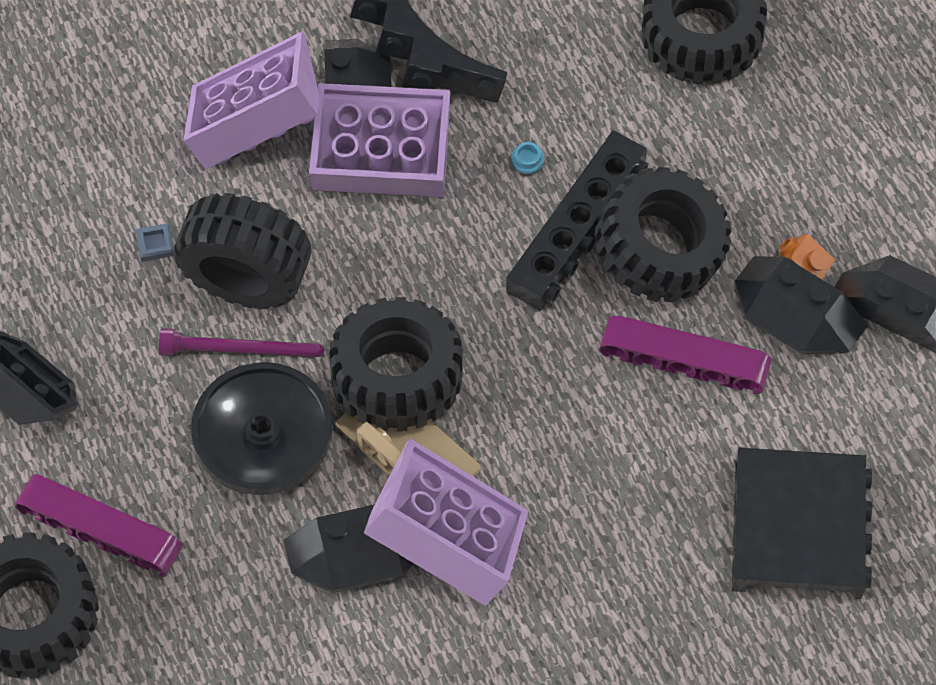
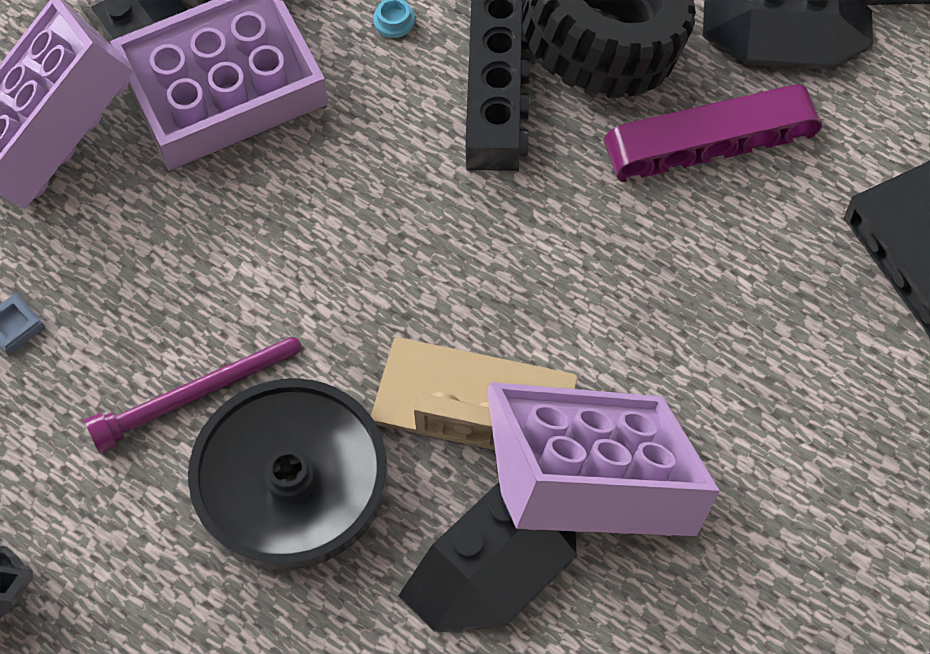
camera: 30 degrees left, 0 degrees up
(242, 251) = (137, 269): black tyre -> none
(388, 329) = (399, 261): black tyre -> none

